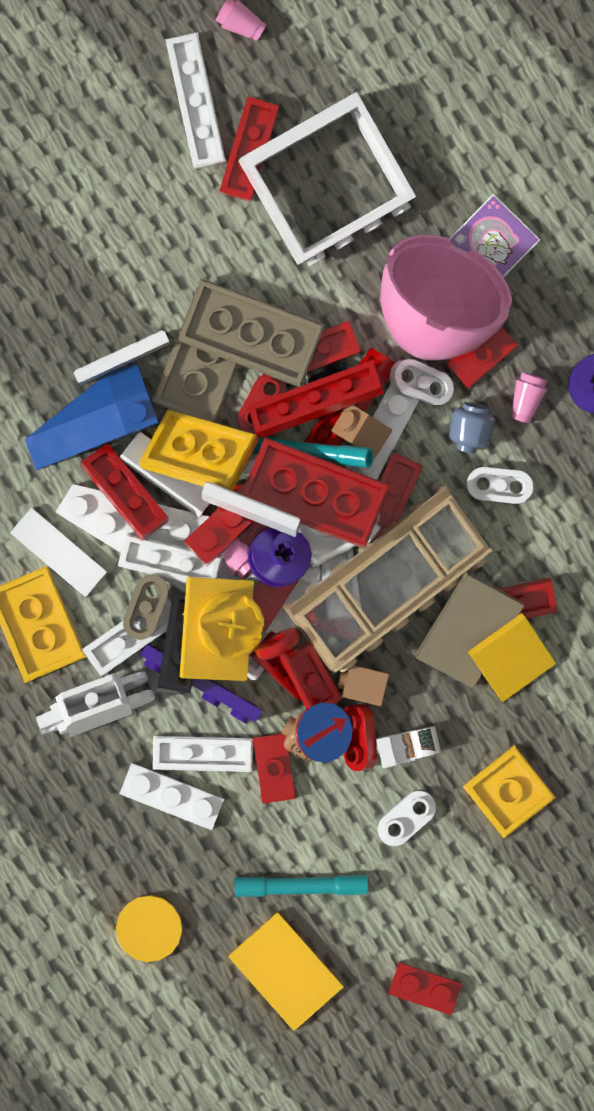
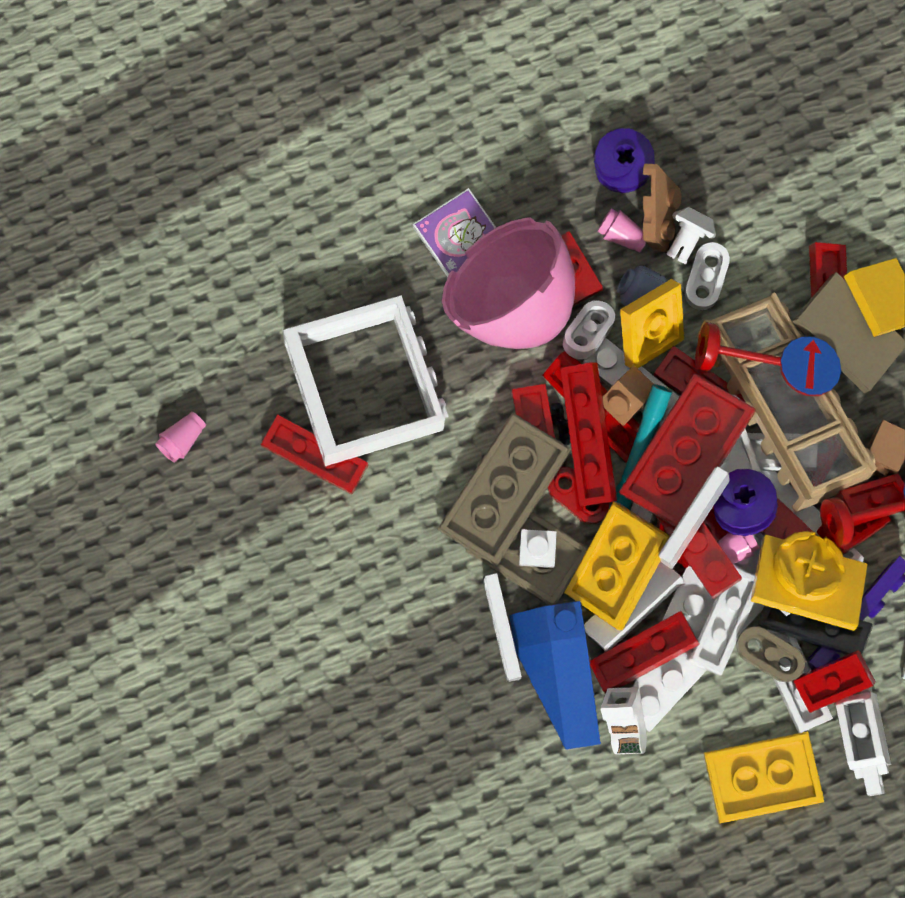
camera: 75 degrees left, 10 degrees down
(55, 488) = (625, 720): none -> white leg
(58, 552) = (692, 737): white tile -> none
(131, 668) = (834, 681): none -> red plate
(195, 100) = (252, 499): white tile -> none
(202, 375) = (537, 548): none -> white plate
(422, 591) = (806, 363): none -> piece
(435, 439) = (652, 324): none -> yellow plate
(538, 460) = (693, 227): none -> white connector
(554, 426) = (659, 208): none -> medium nougat wing

